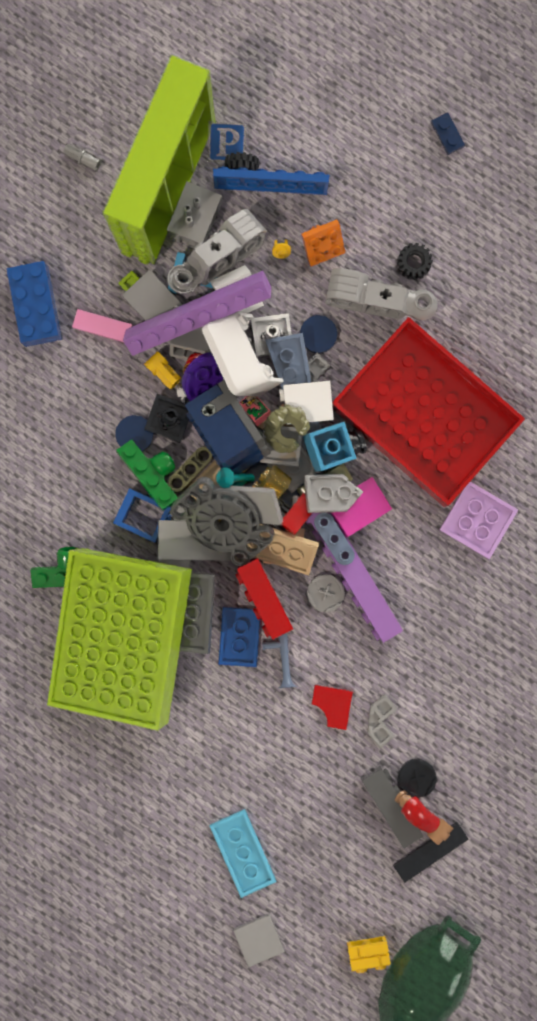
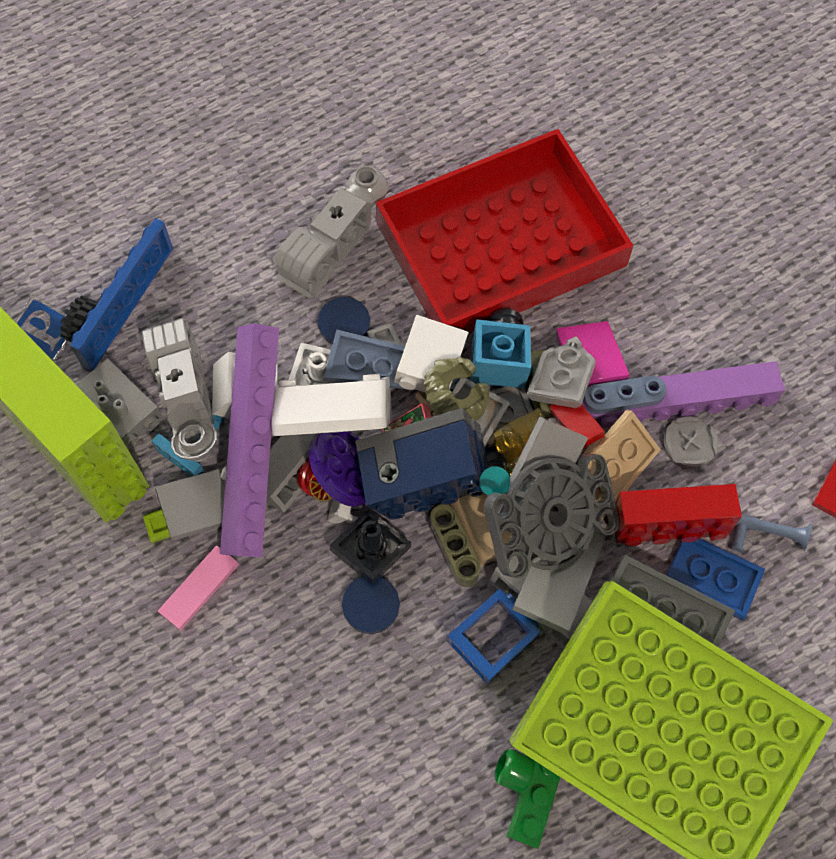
camera: 65 degrees left, 20 degrees down
(34, 304) = (119, 666): blue brick -> none
(150, 472) = (437, 598): green plate -> none
(159, 367) = (293, 531): yellow piece -> none
(281, 250) = (215, 321): yellow plate -> none
(322, 239) = (228, 266): orange plate -> none
(414, 250) = (307, 170): black tyre -> none
(447, 133) = (173, 96): dark blue plate -> none
(478, 520) = (662, 232): lavender plate -> none

